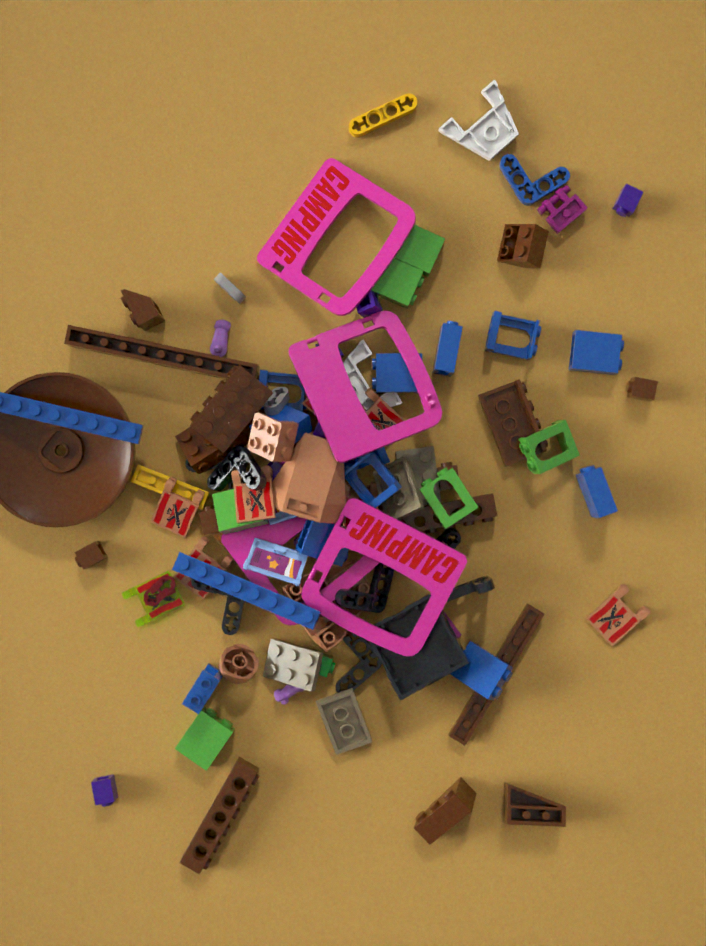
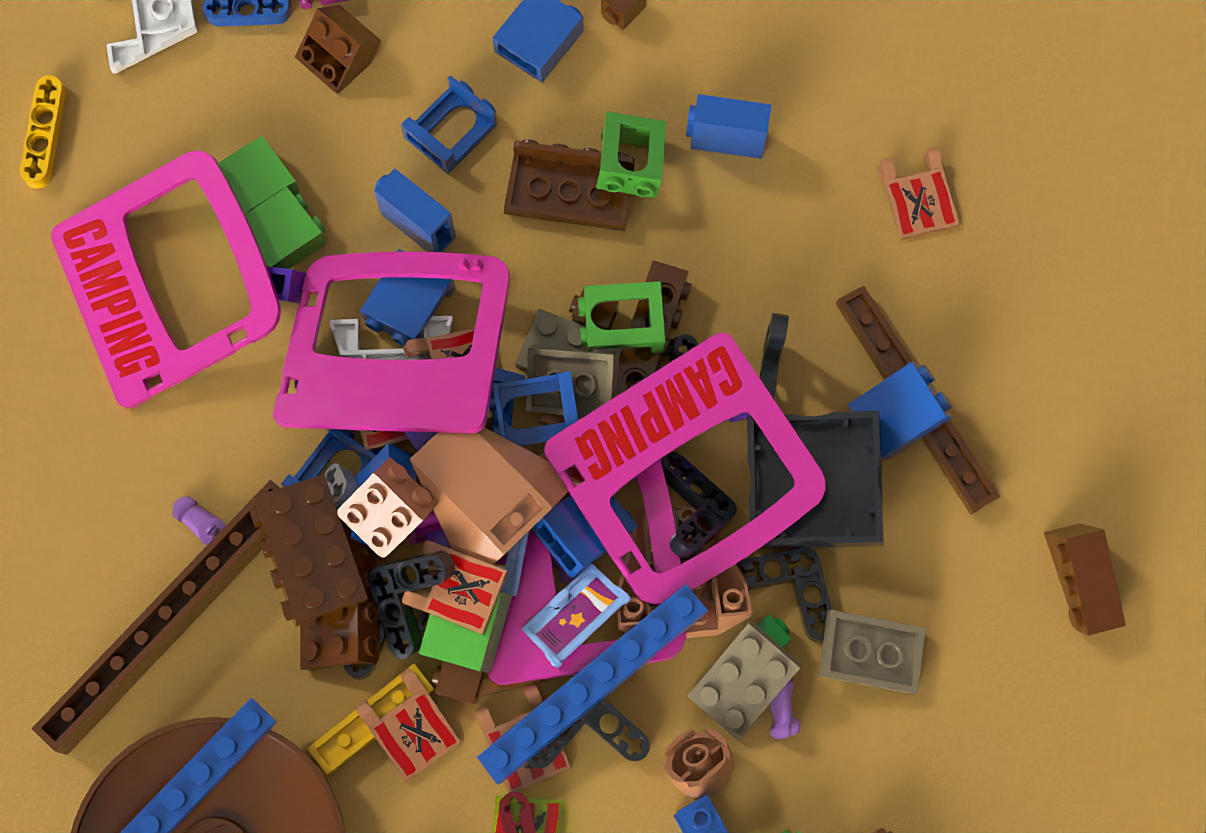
camera: 60 degrees left, 15 degrees down
(144, 310) = (83, 603): reddish brown slope -> none
(230, 288) = (137, 466): light grey beam -> none
(531, 809) = (1139, 453): reddish brown wedge -> none

